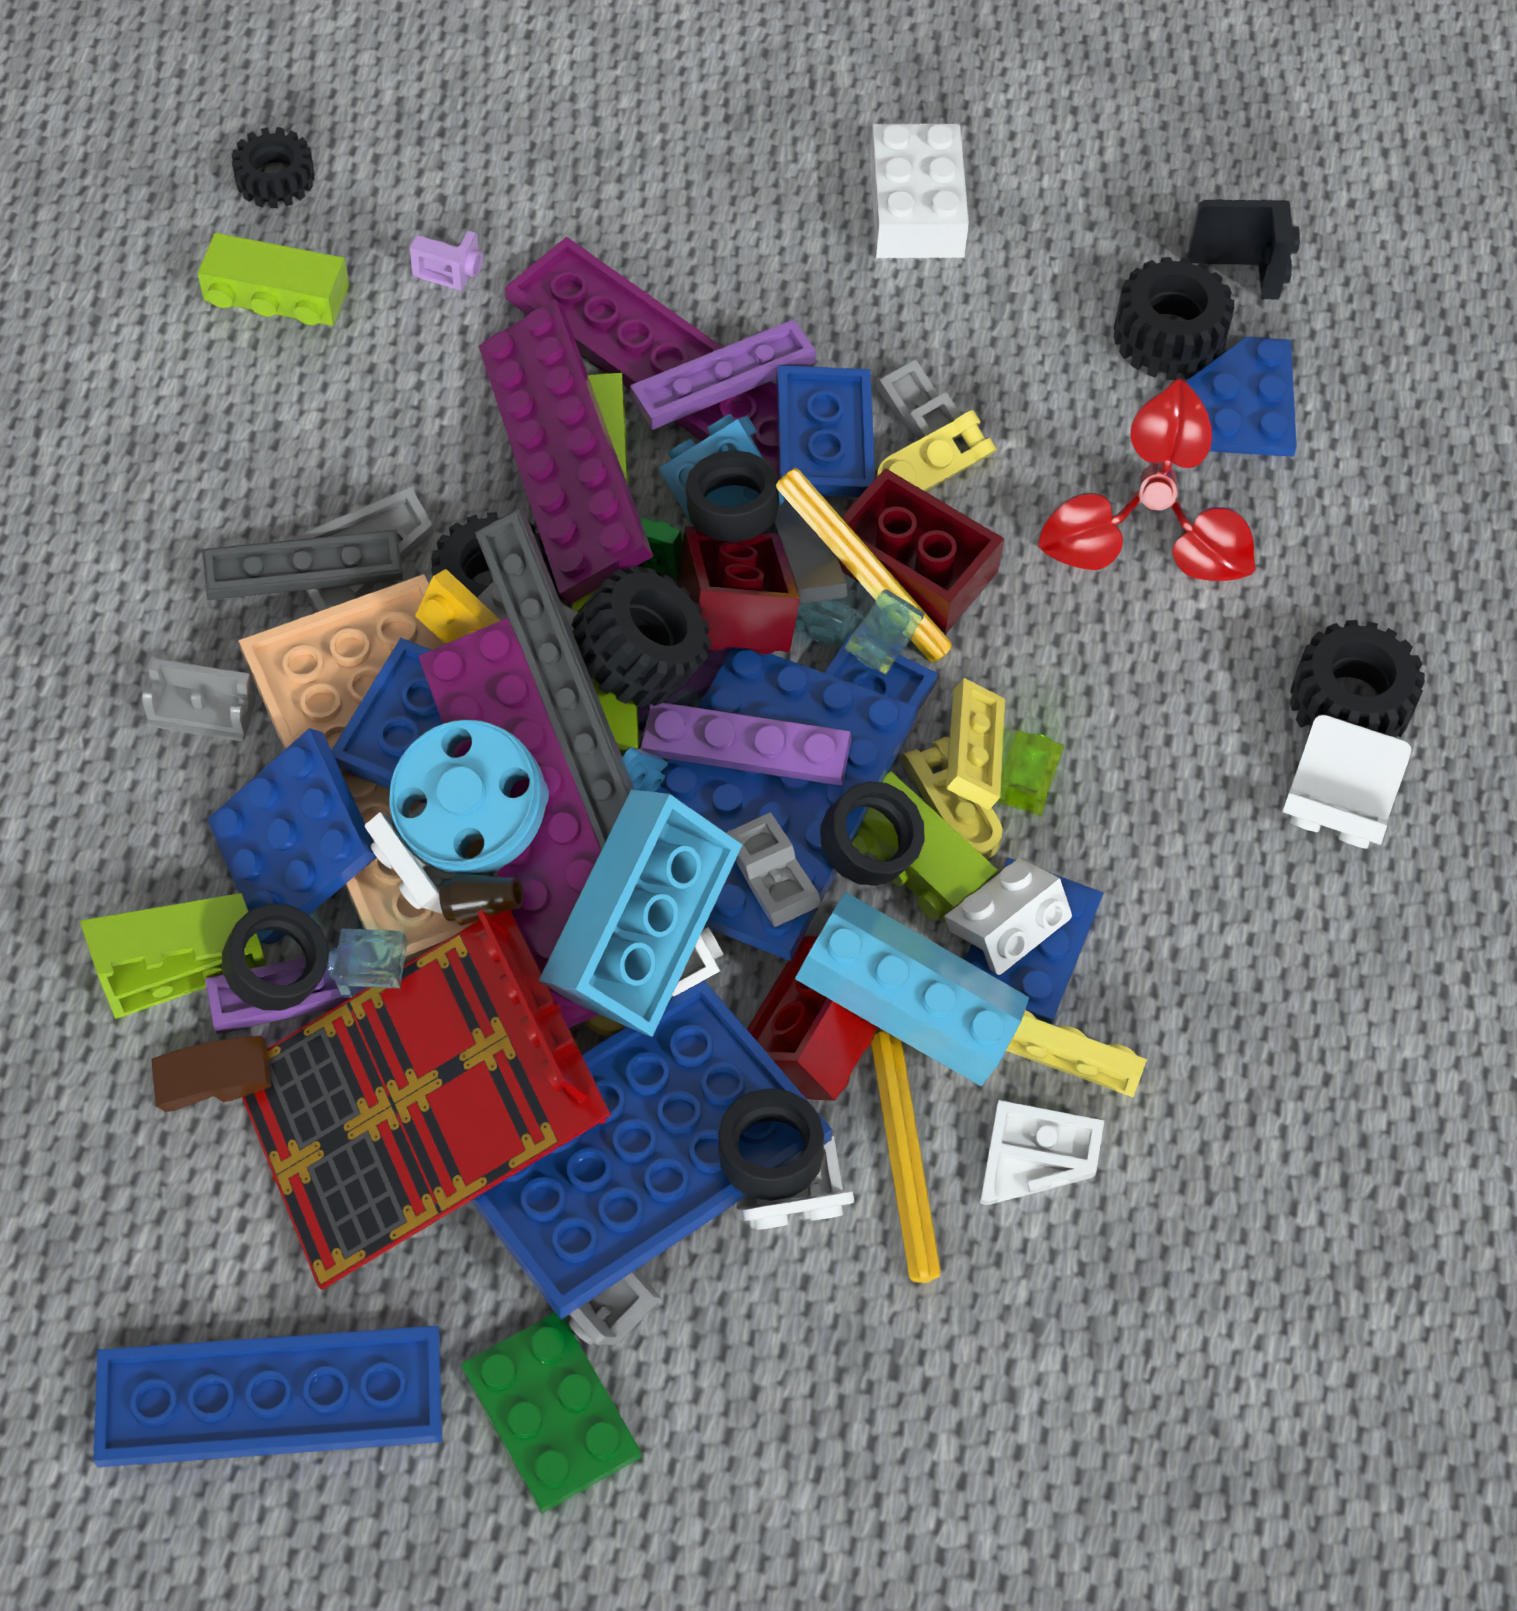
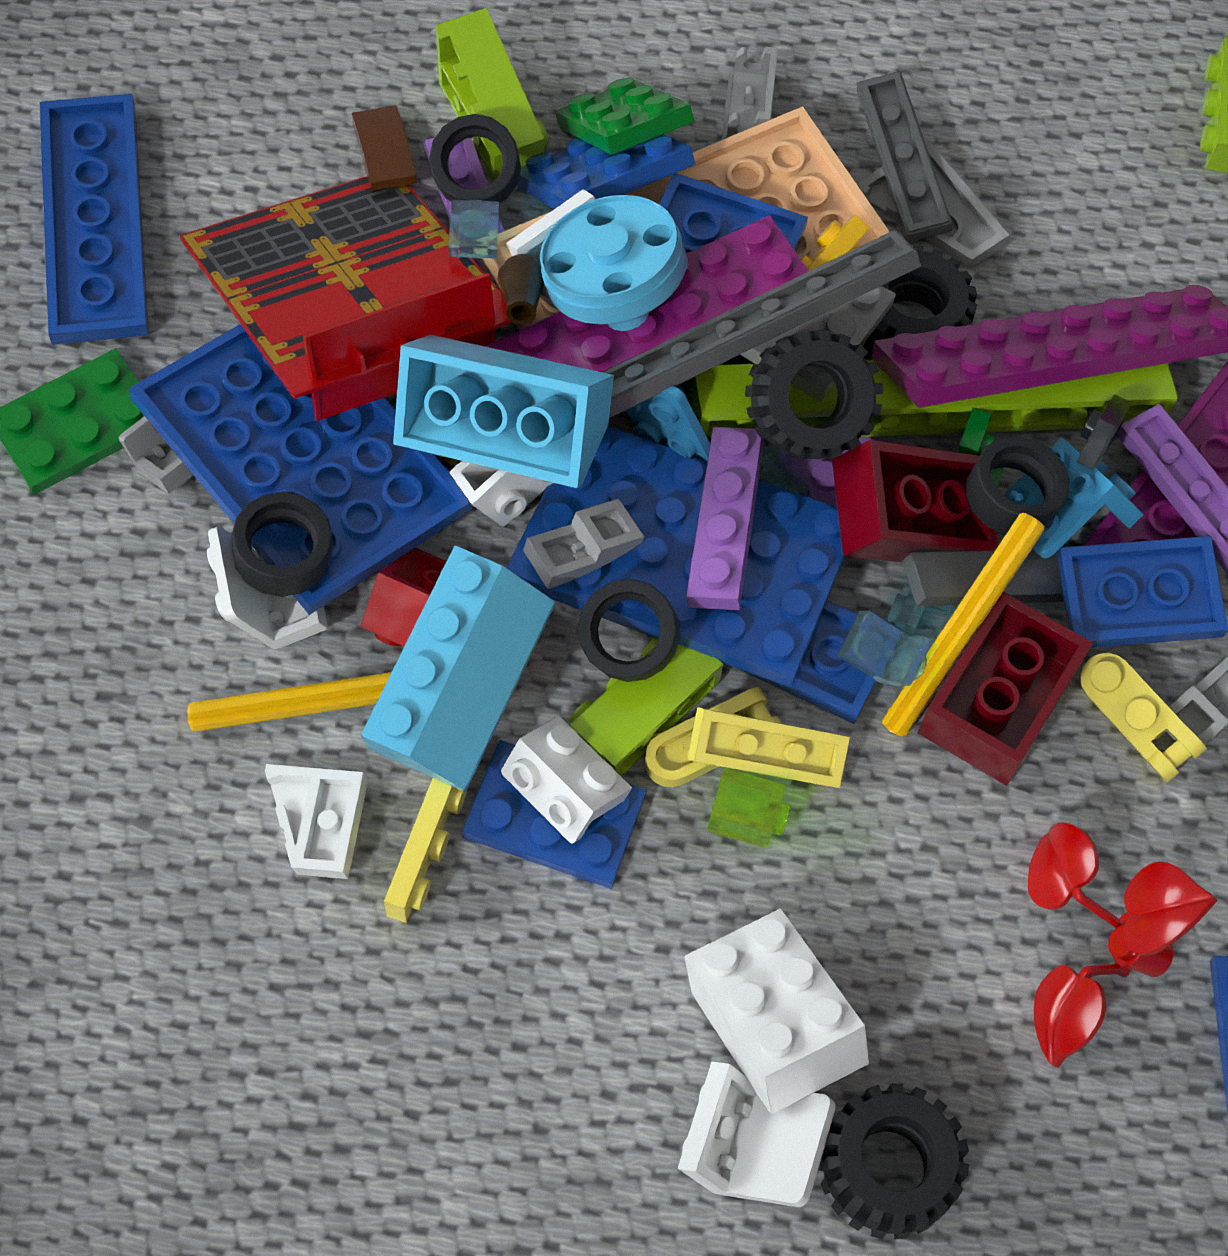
camera: 85 degrees right, 5 degrees up
(224, 812) = (623, 115): none -> green plate
(668, 426) = (1101, 431): none -> black plate
(1236, 753) = (777, 1010): none -> white brick

